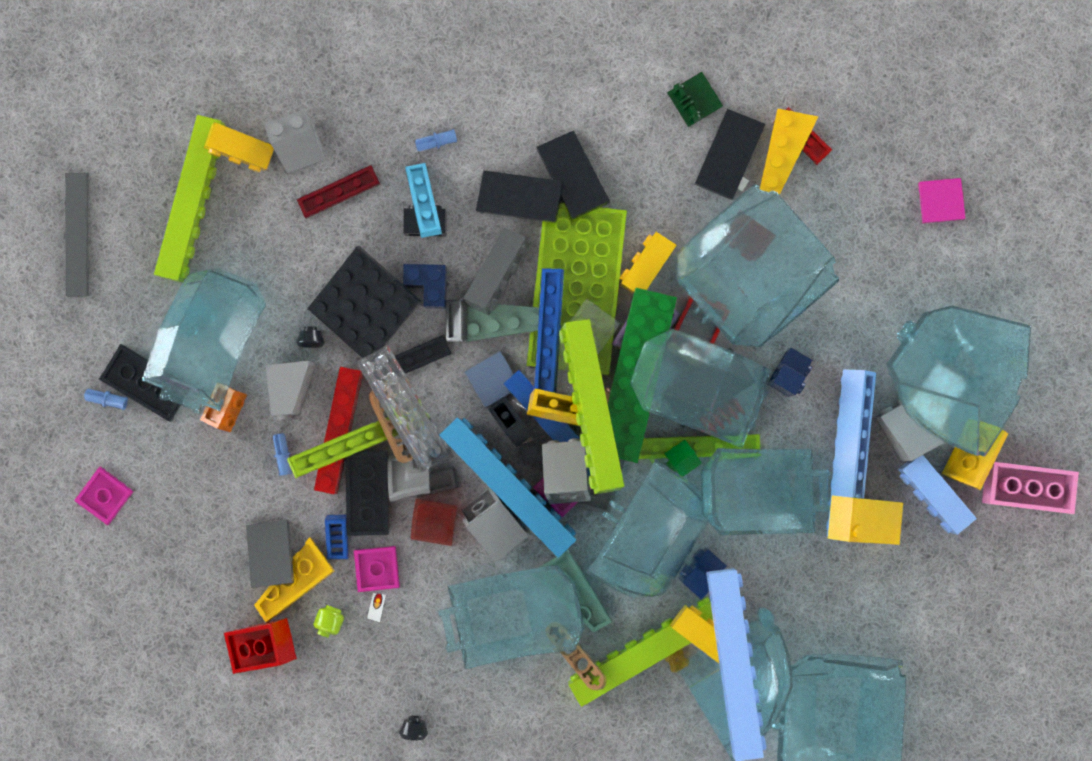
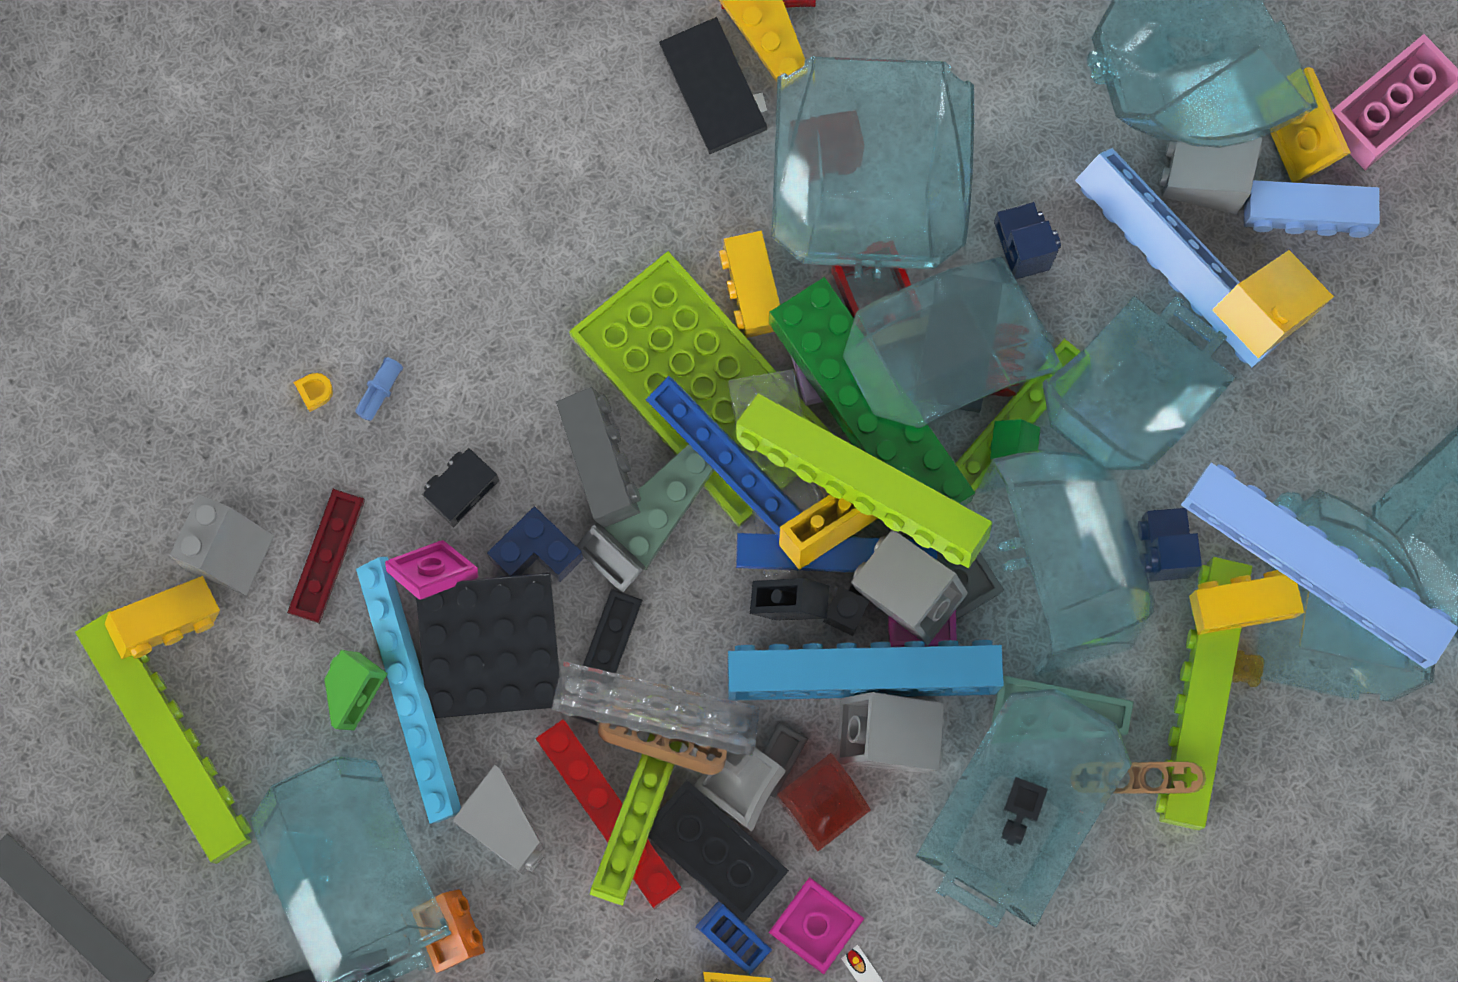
camera: 50 degrees left, 10 degrees down
(282, 454) = (572, 911): medium blue axle -> none
(288, 261) = (351, 687): none -> bright green slope
(310, 338) = (466, 746): black cone -> none
(312, 287) = (409, 691): none -> medium azure plate
(372, 246) = (431, 569): none -> dark pink tile
(408, 112) = (314, 390): none -> yellow tile
(423, 200) = (435, 463): medium azure tile -> none
(489, 378) = (714, 581): sand blue tile -> none
(517, 613) = (1025, 802): none -> black plate
(519, 196) = (536, 353): black tile -> none
(569, 163) = (569, 273): black tile -> none
(694, 99) = (613, 67): dark green hinge -> none

